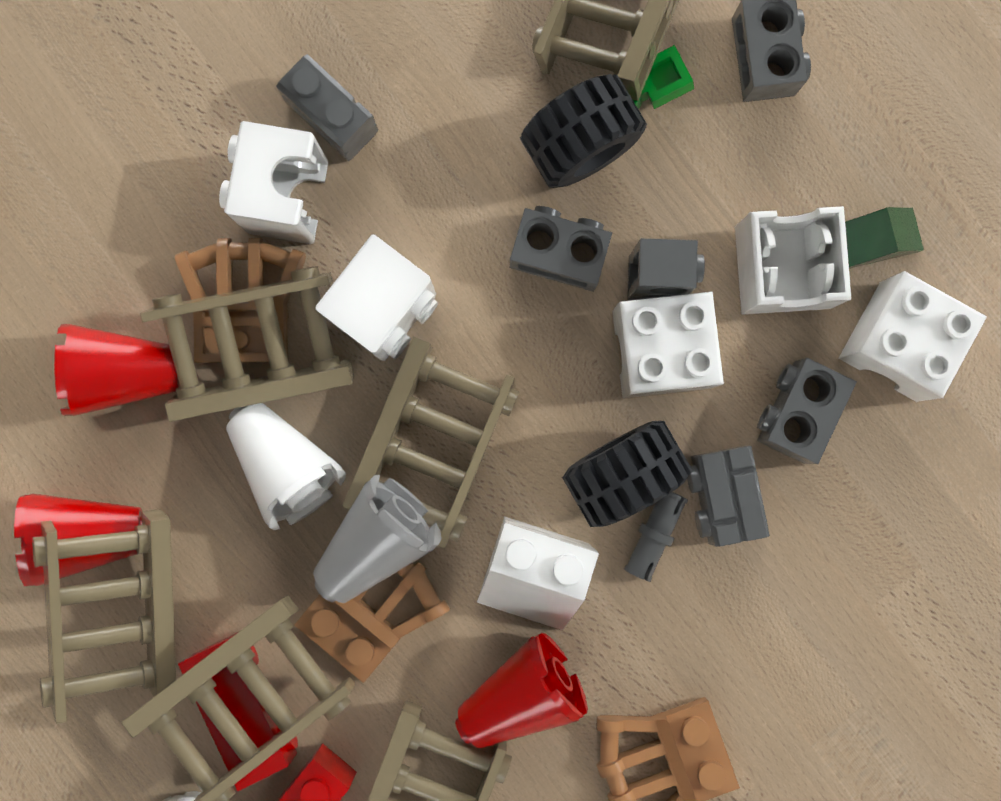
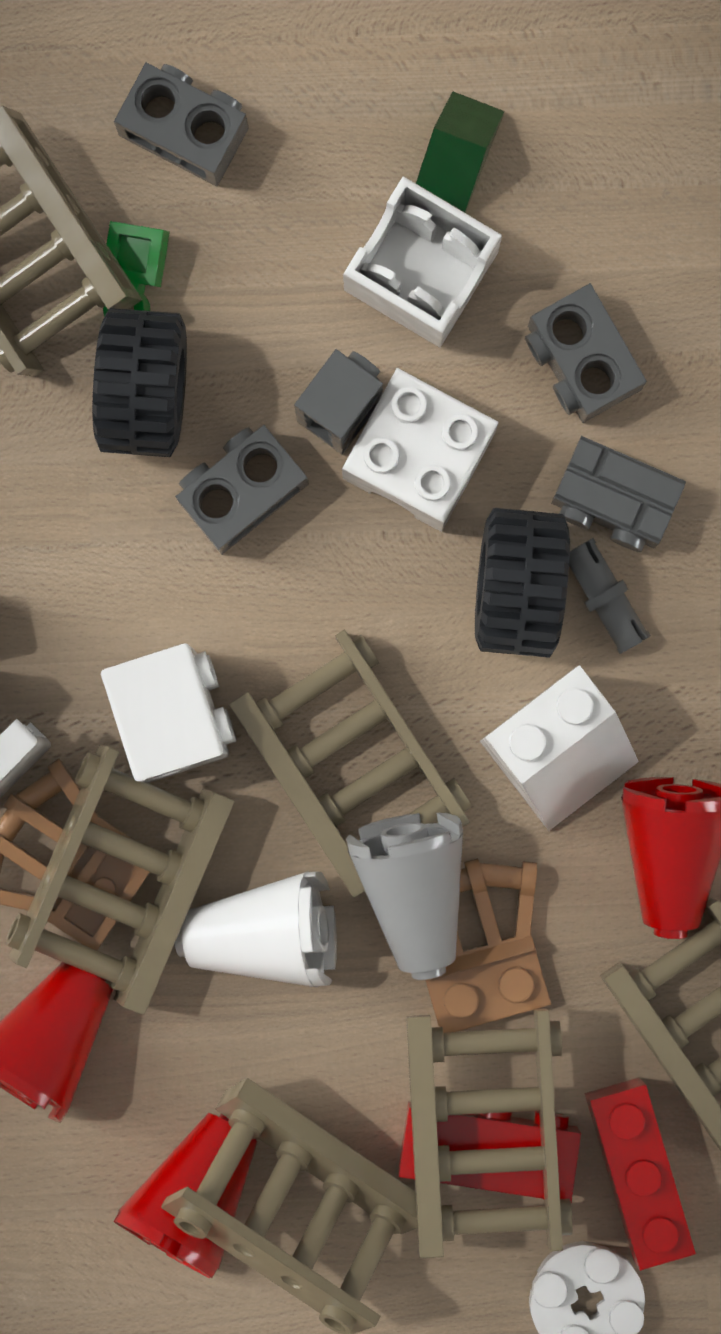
camera: 50 degrees left, 0 degrees up
(913, 336) = (584, 193): white piece -> none

